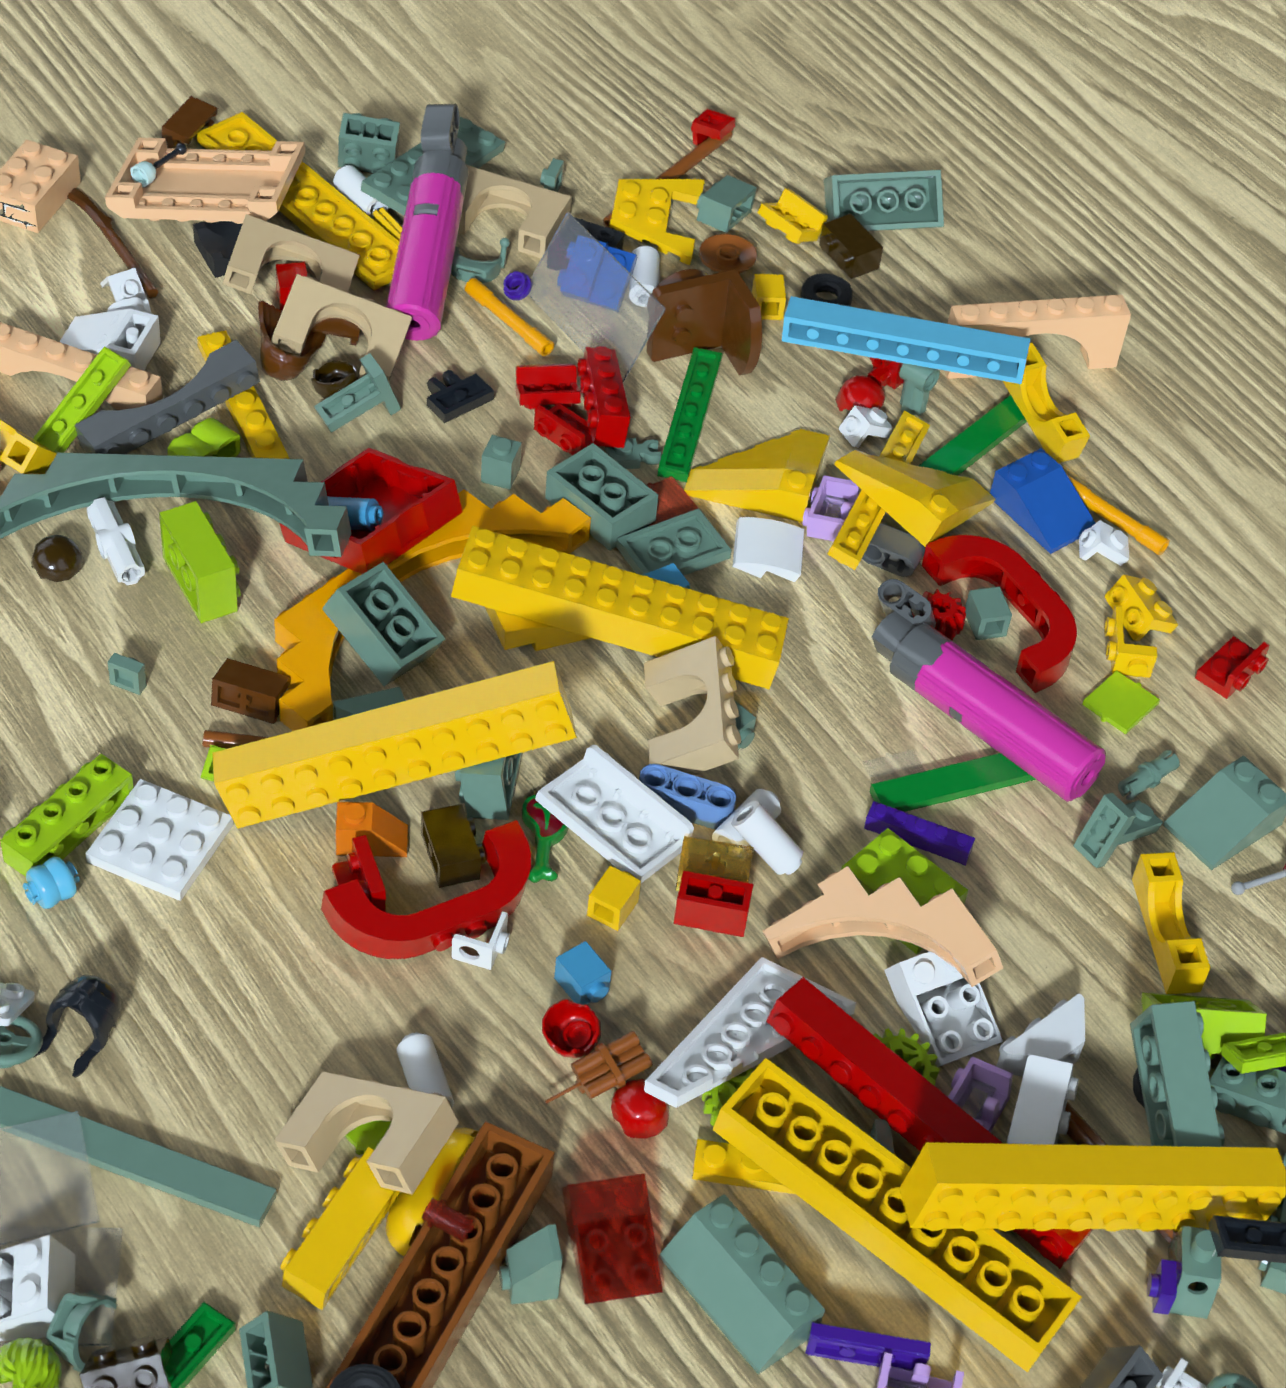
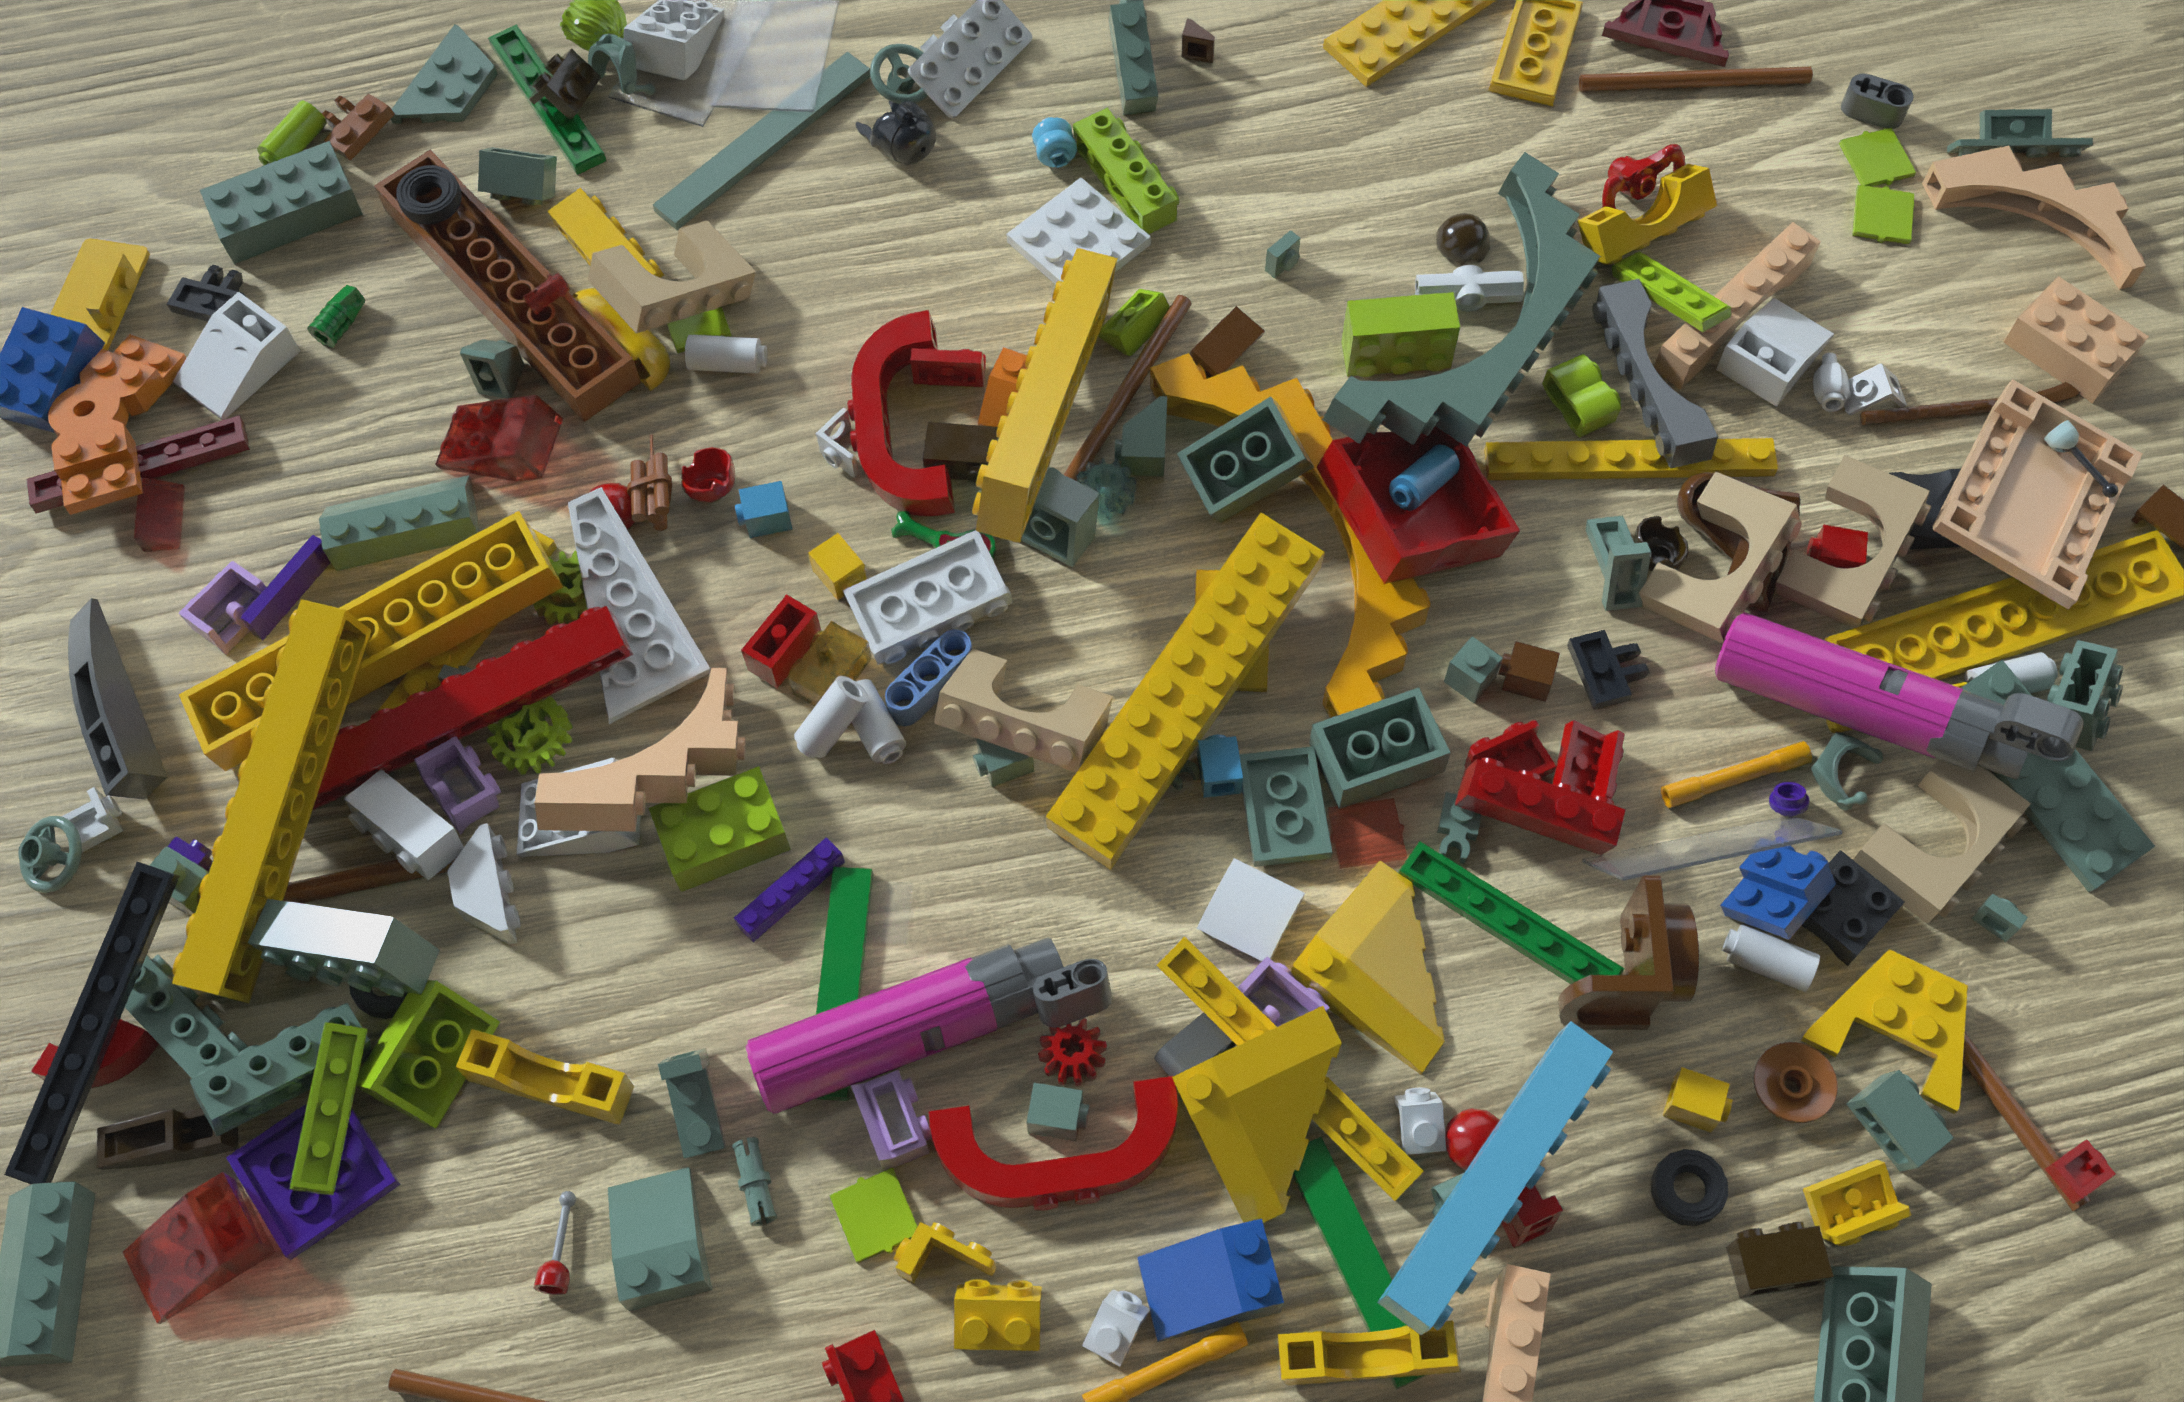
camera: 120 degrees right, 15 degrees up
(480, 428) = (1529, 671): none -> reddish brown brick
(1063, 695) = (891, 1119): none -> lavender window

